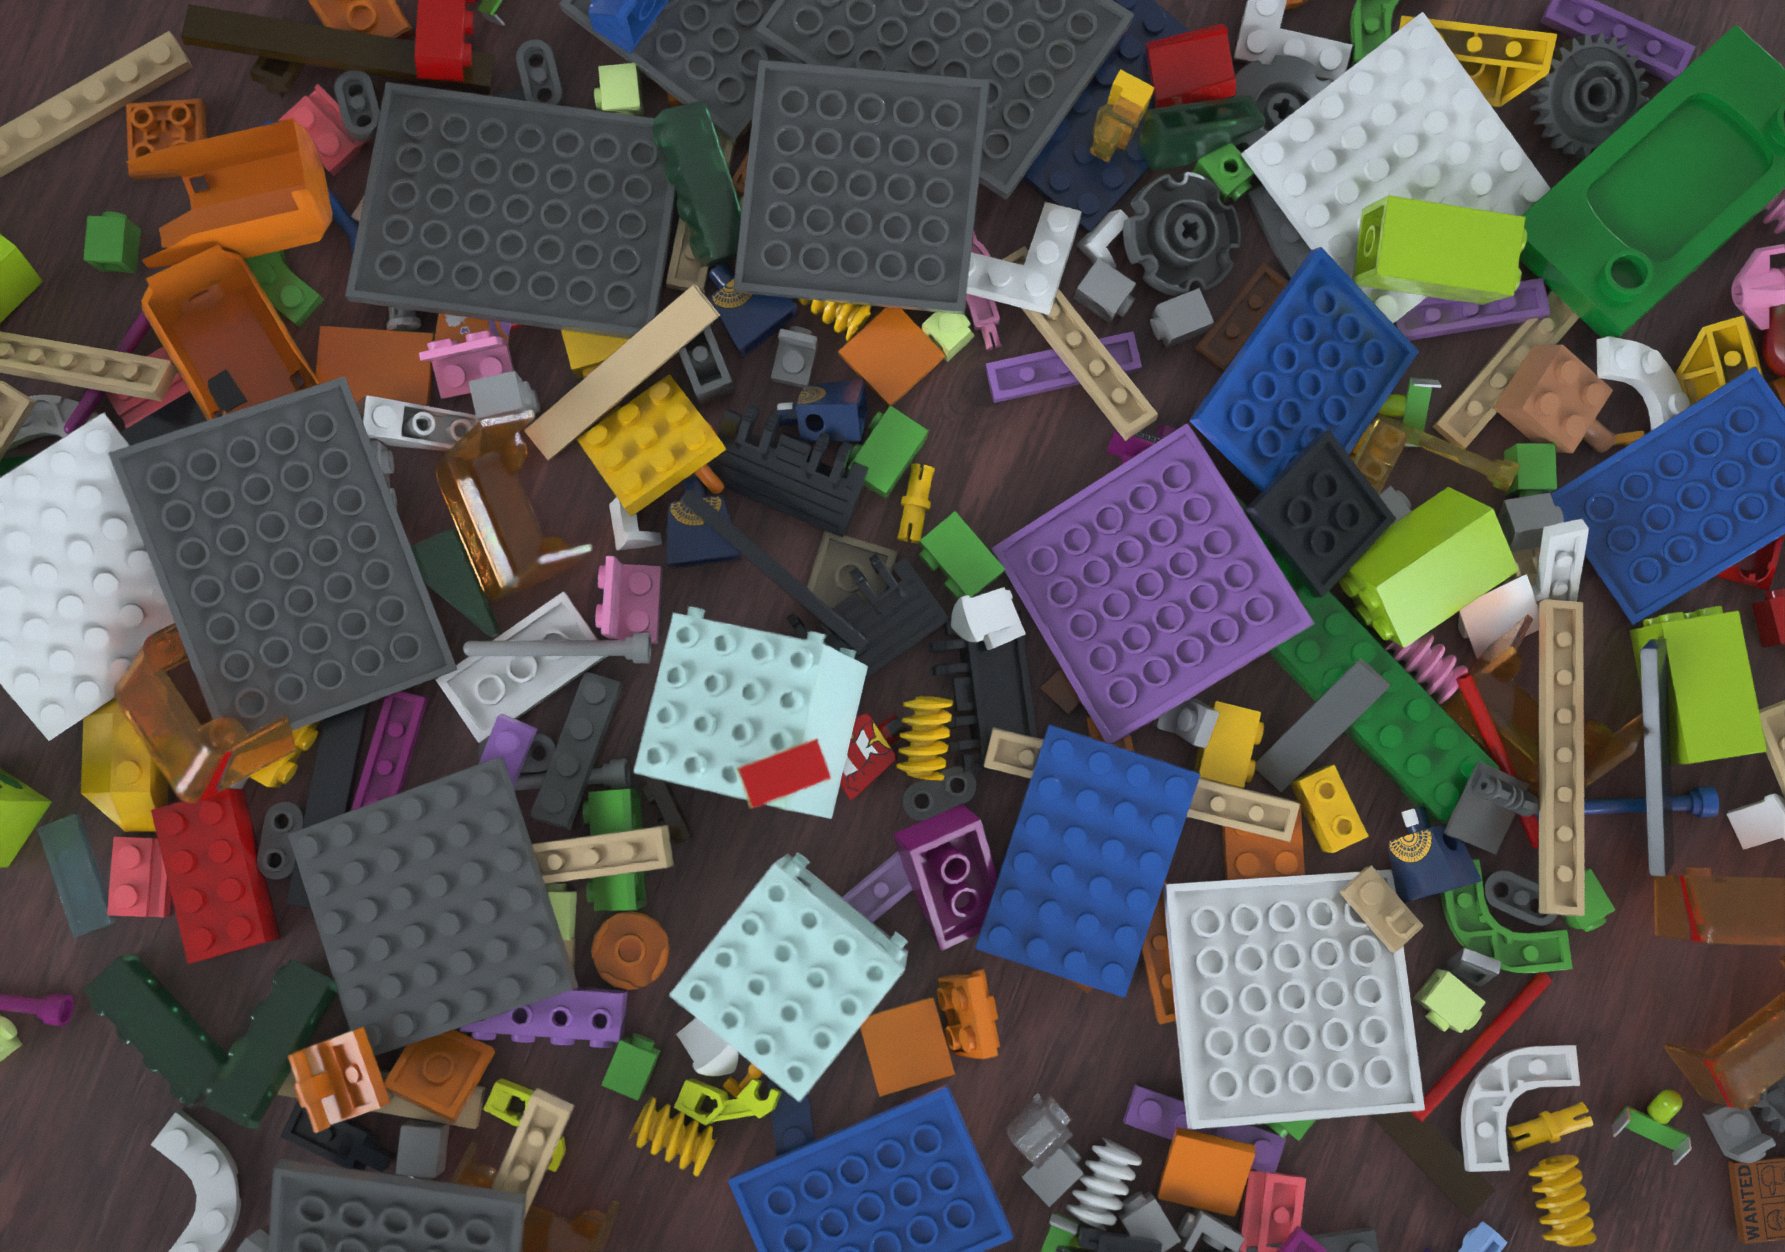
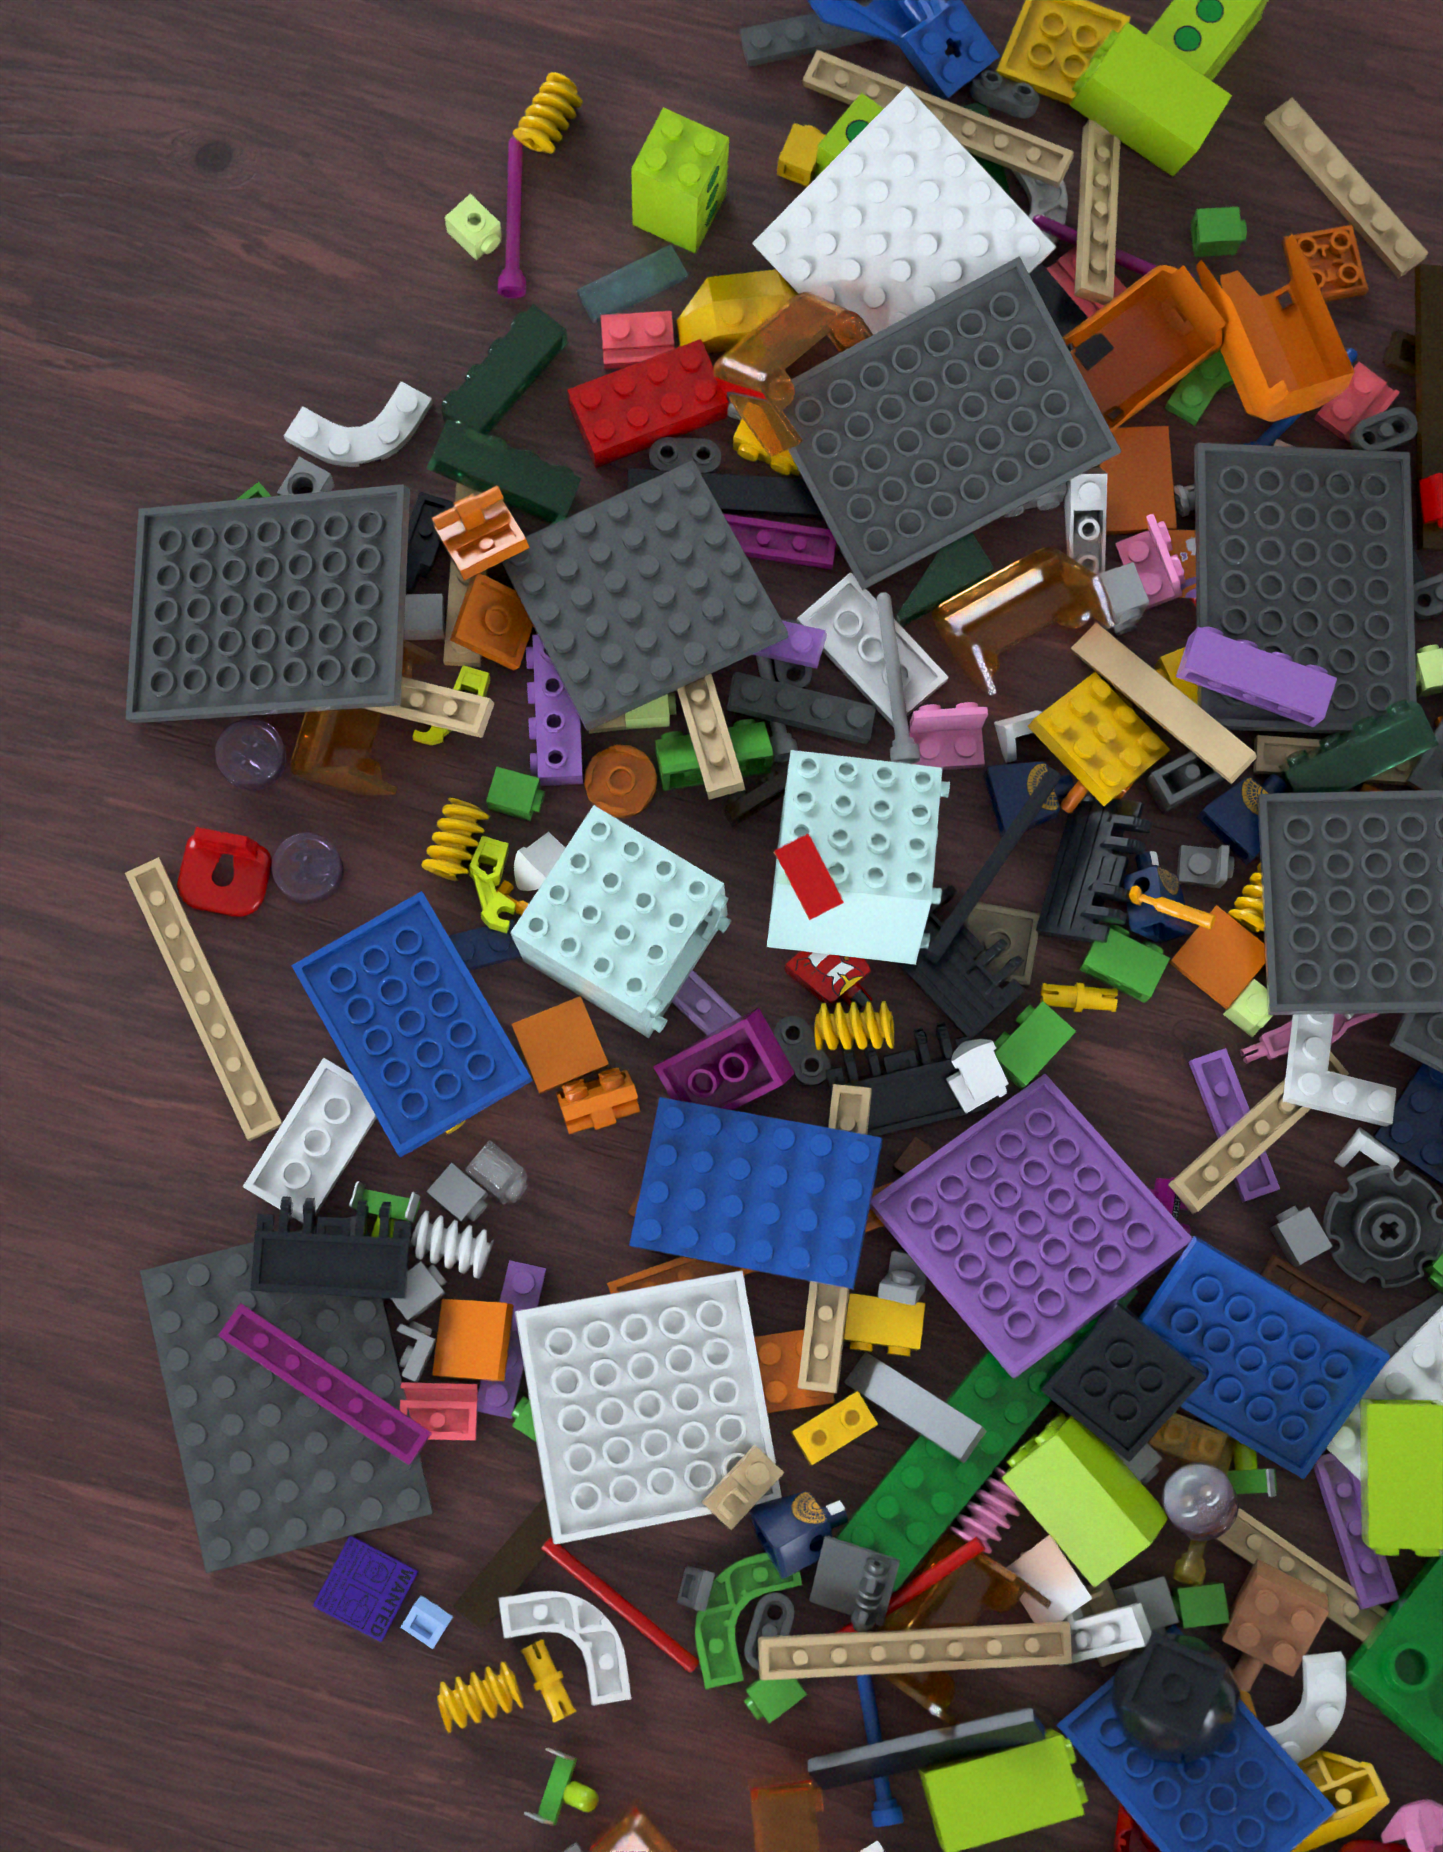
camera: 80 degrees right, 5 degrees down
(609, 272) = (1256, 676): none -> medium lavender brick
(848, 391) = (1173, 908): none -> light orange piece
(1105, 291) = (1315, 1158): light grey brick -> none
(1439, 454) = (1200, 1501): none -> clear purple head
(1449, 1002) = (658, 1568): yellowish green brick -> none
(1631, 503) = (1175, 1698): none -> black plate

